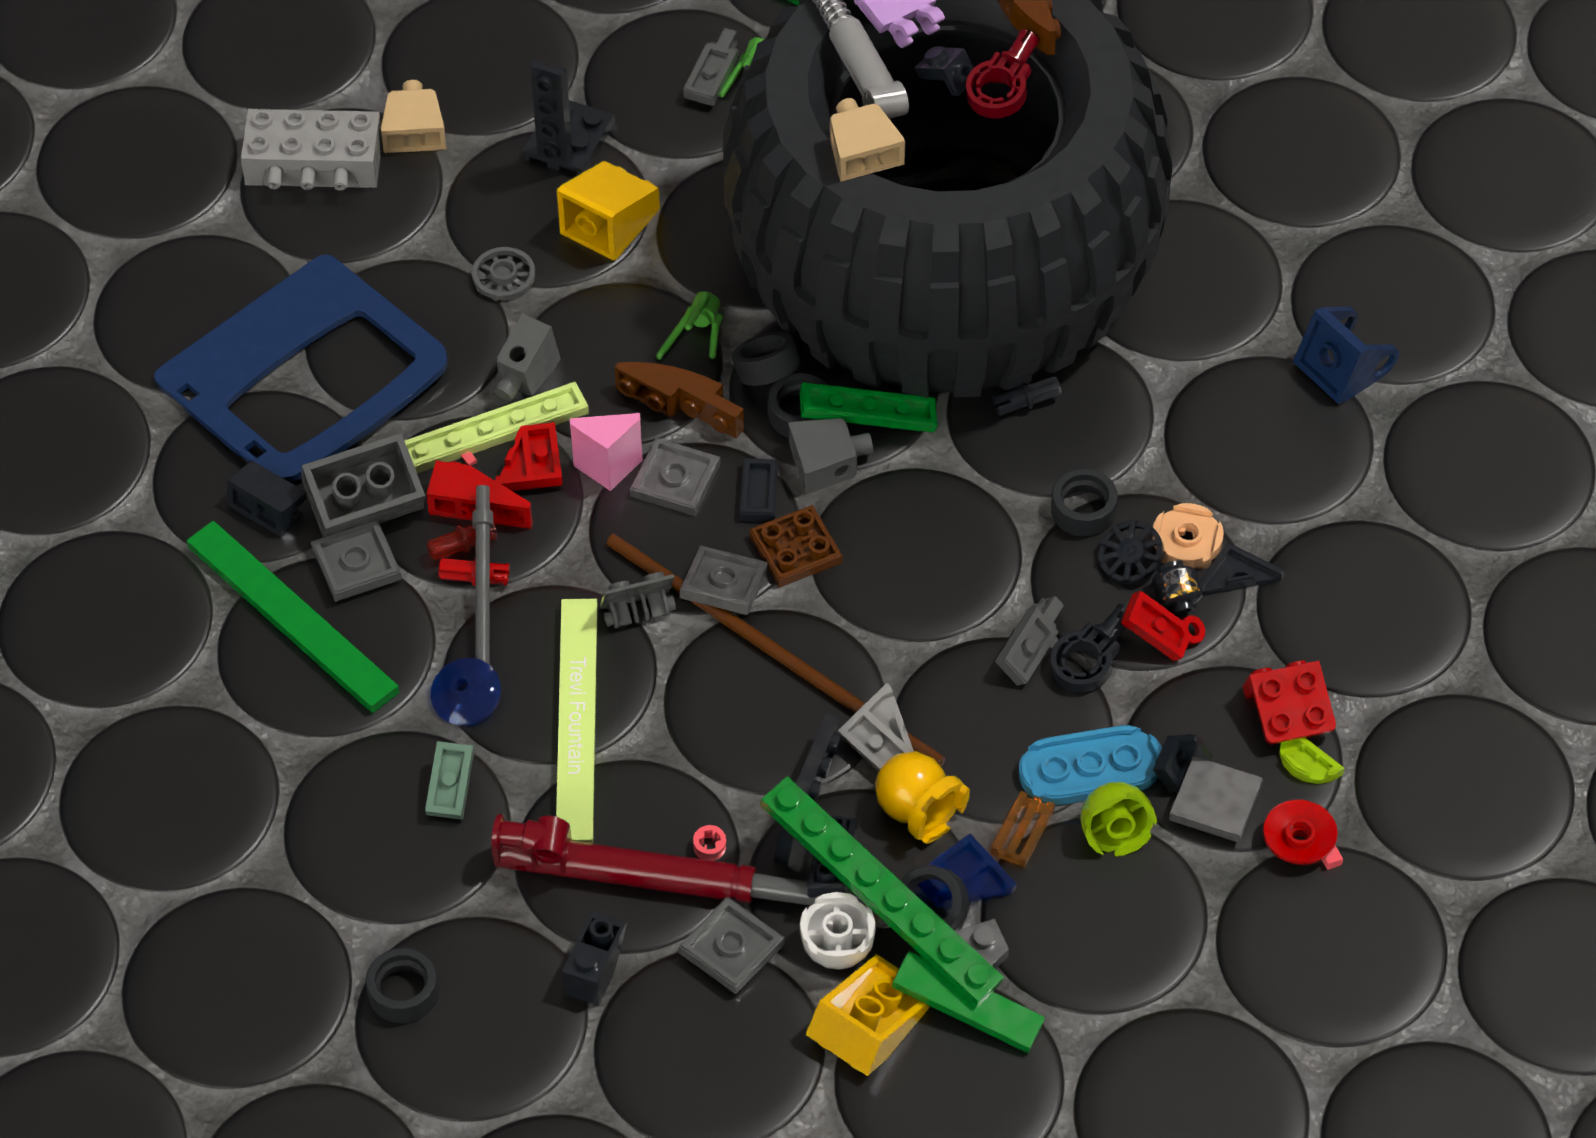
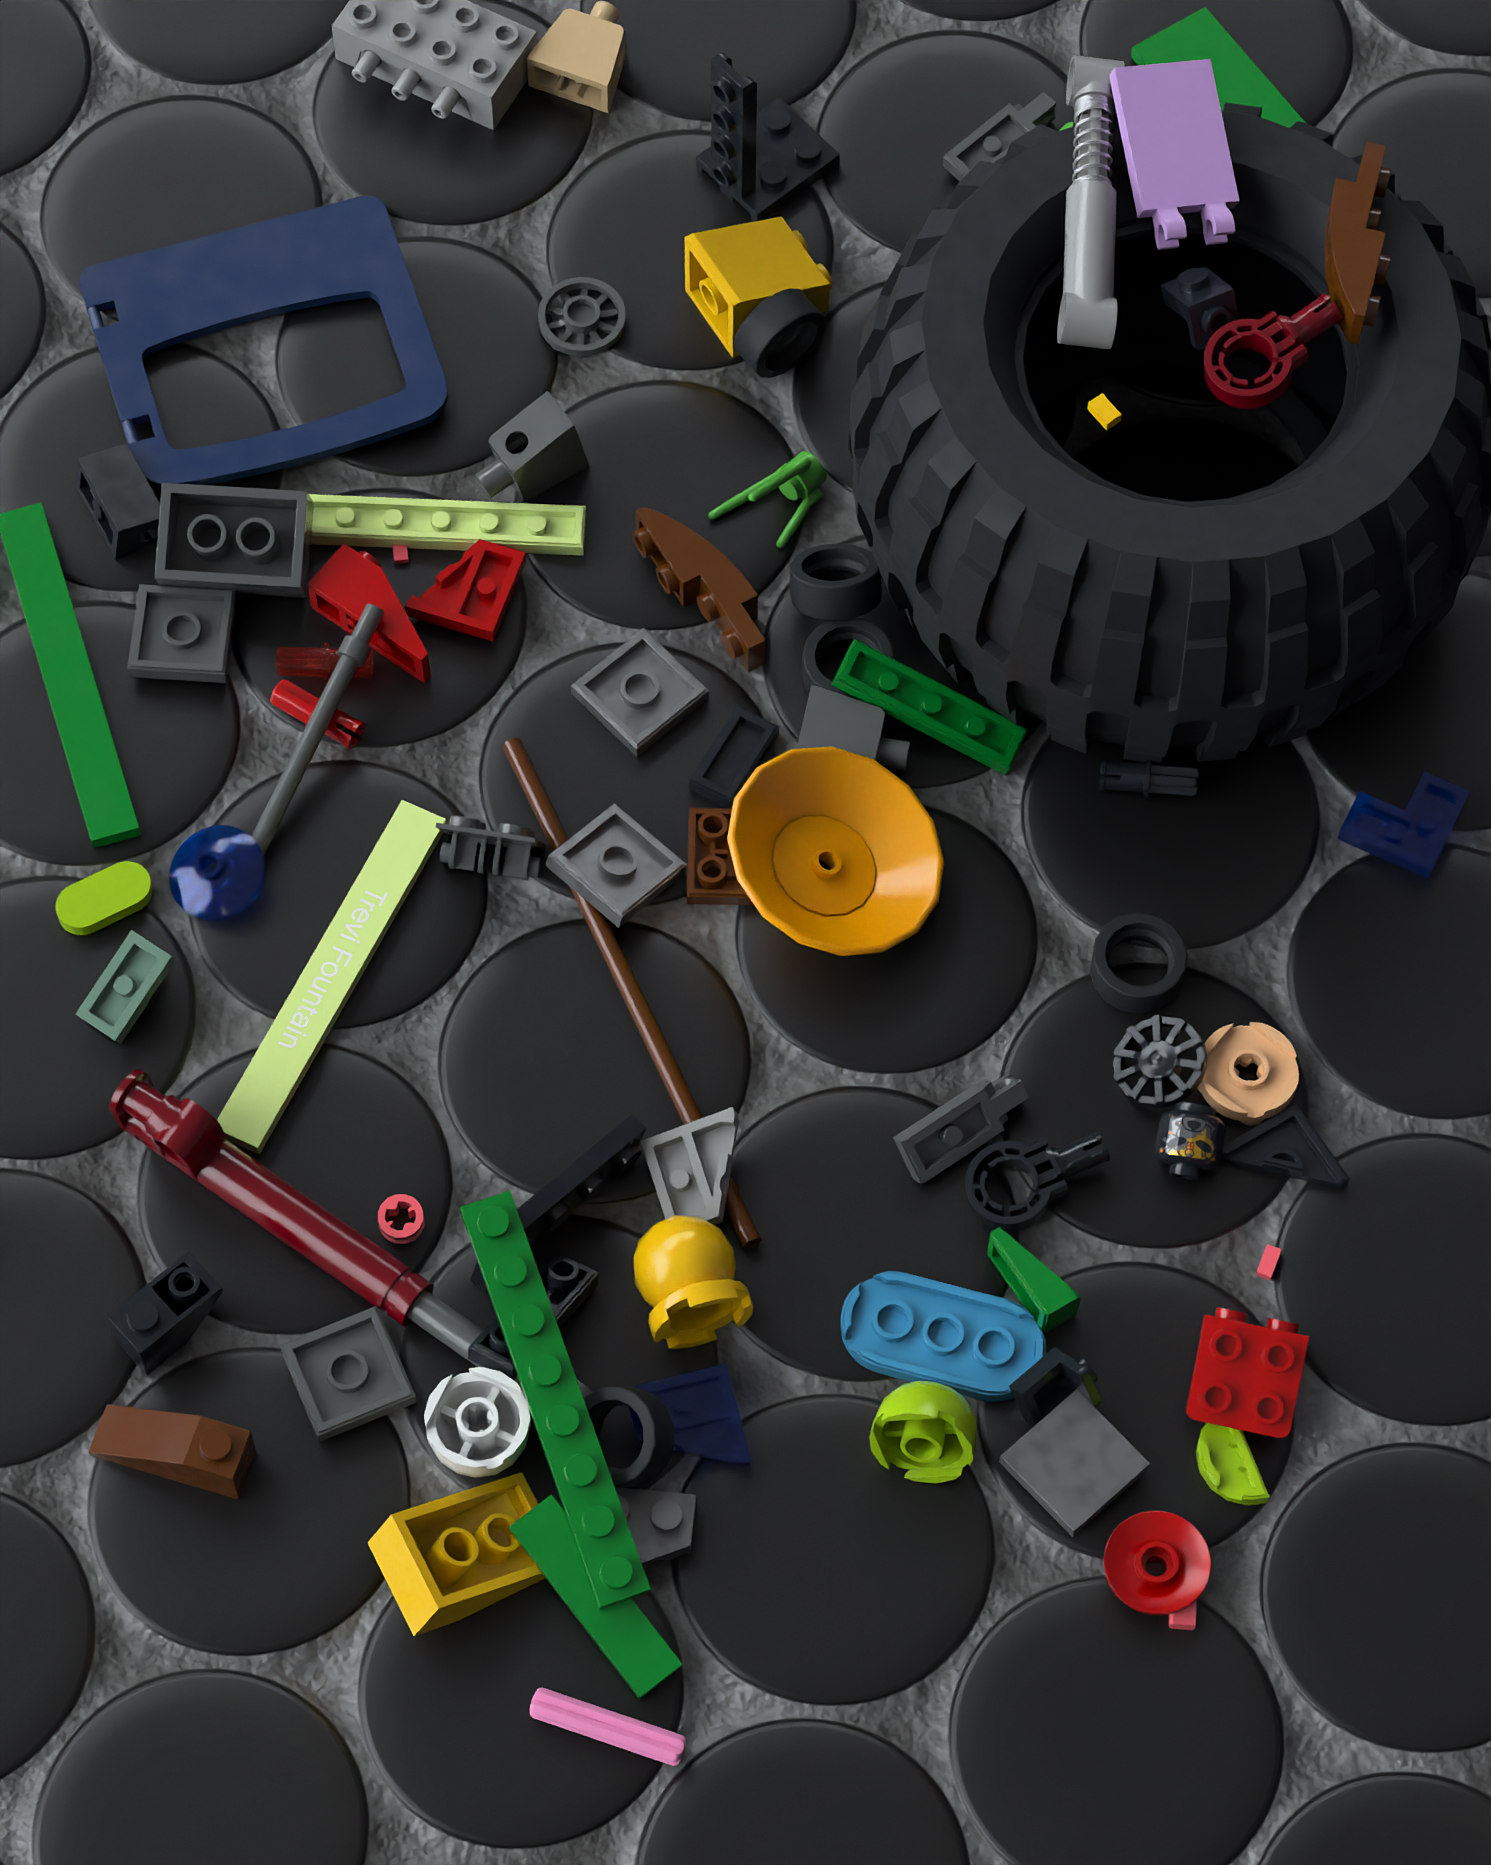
camera: 25 degrees right, 10 degrees up
(399, 738) = (104, 898): none -> lime tile
(606, 446) = (567, 618): bright pink slope -> none
(643, 229) = (779, 333): none -> black tyre
(647, 1034) = (176, 1447): none -> reddish brown slope
(864, 140) = (1021, 366): tan torso -> none
(864, 508) = (857, 822): none -> light orange dish
(924, 150) = (1104, 411): none -> yellow piece
(1019, 1075) = (607, 1726): none -> bright pink axle
(1033, 805) = (837, 1358): clear orange tile -> none
(1127, 707) = (1033, 1283): none -> green slope
(1160, 626) = (1135, 1188): red hinge -> none
(1202, 365) = (1408, 836): none -> clear blue plate
(1263, 639) = (1268, 1262): none -> coral piece

